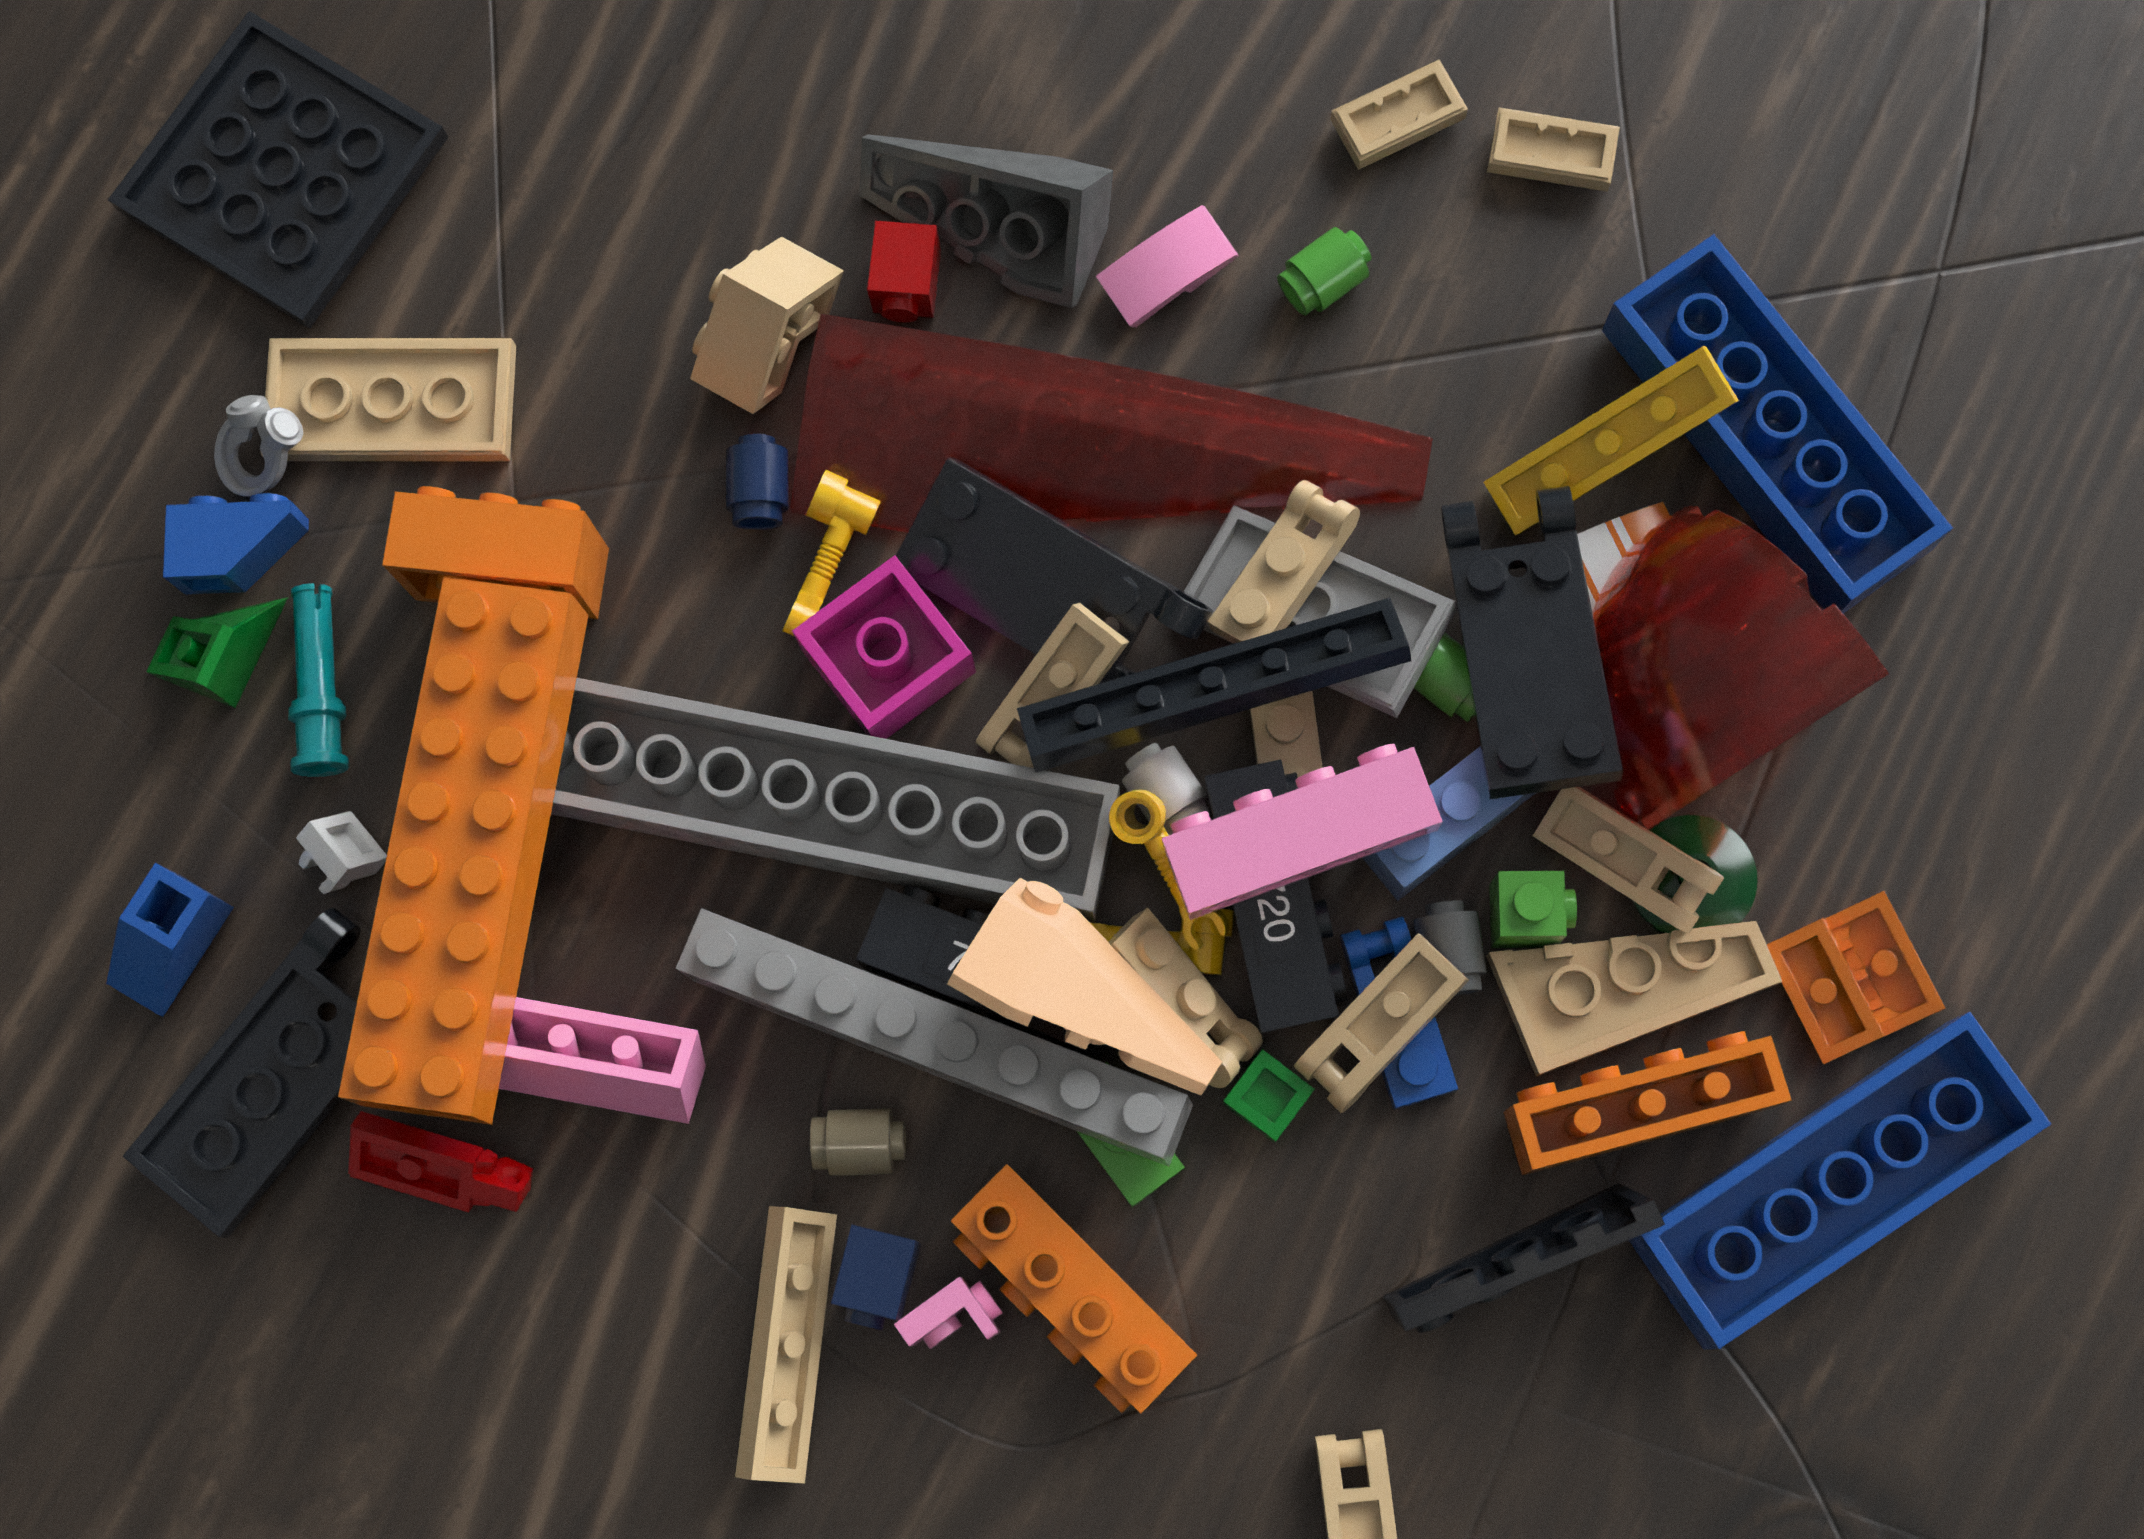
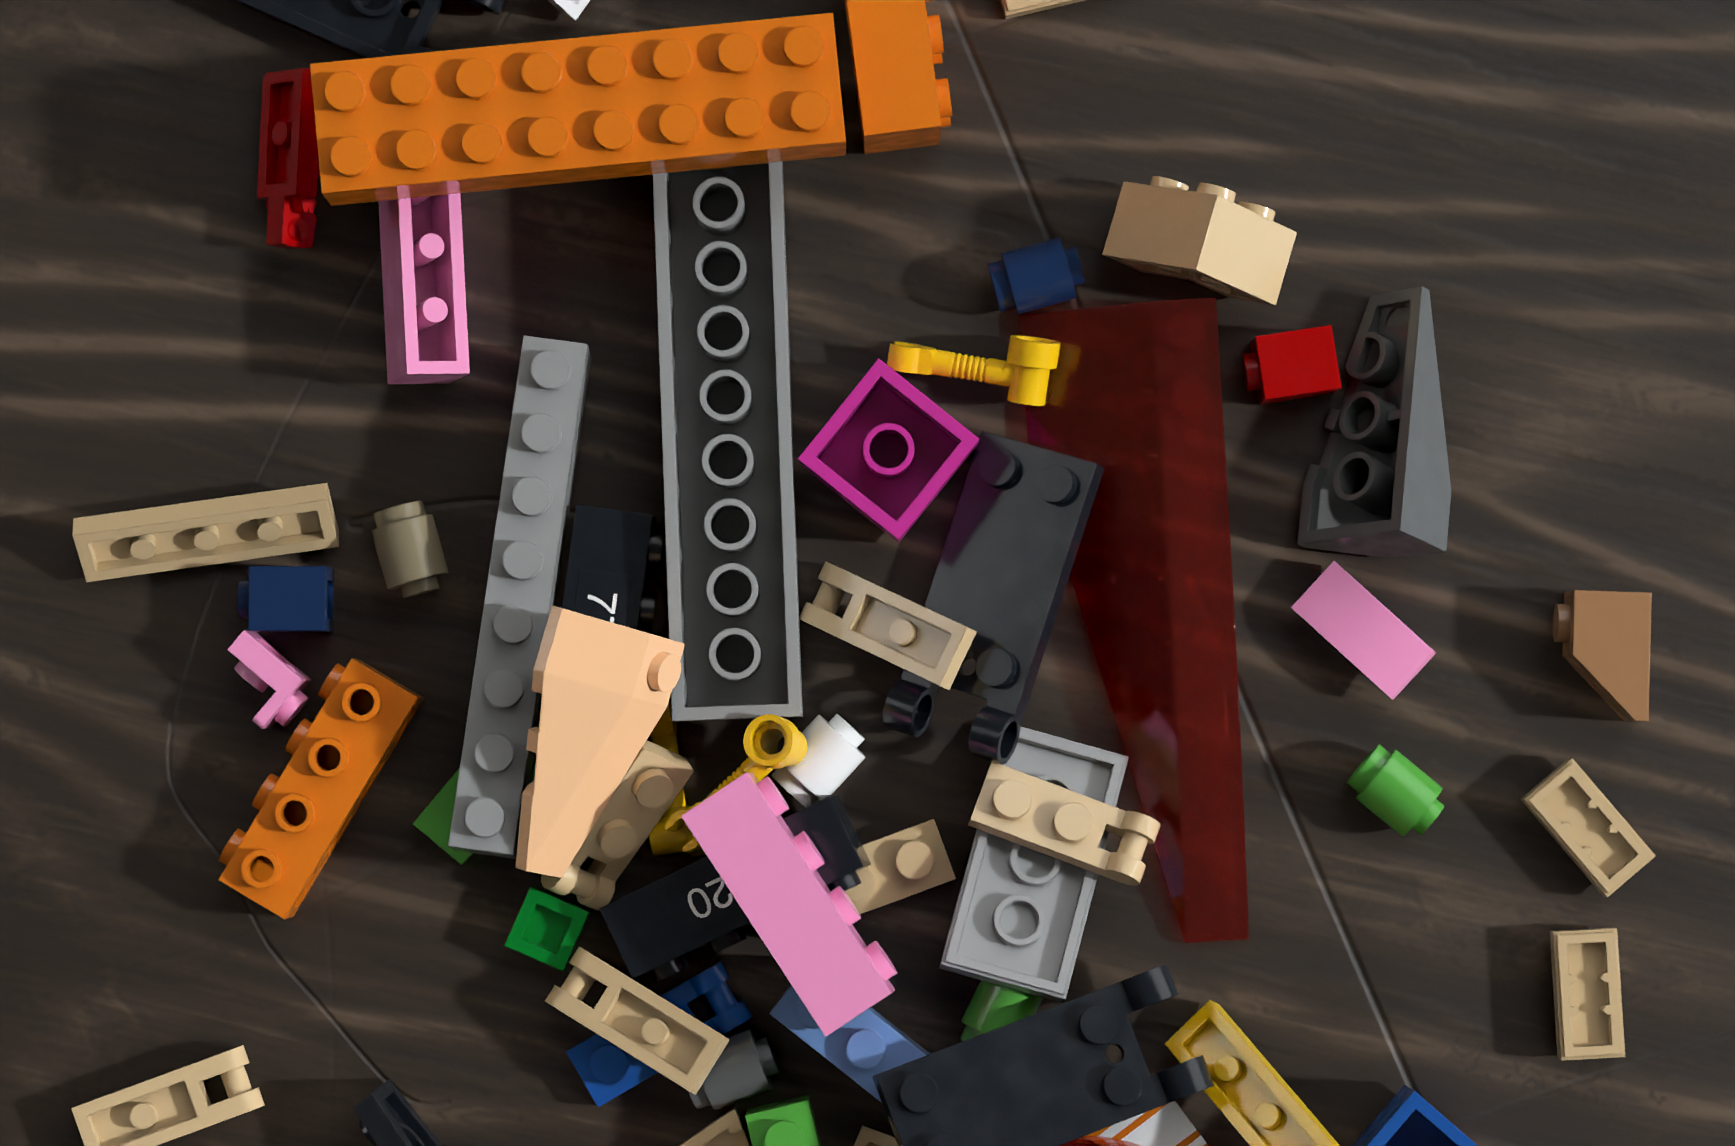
camera: 70 degrees right, 10 degrees up
(1214, 684) = (921, 784): black plate -> none
(1238, 55) = (1609, 646): none -> medium nougat slope

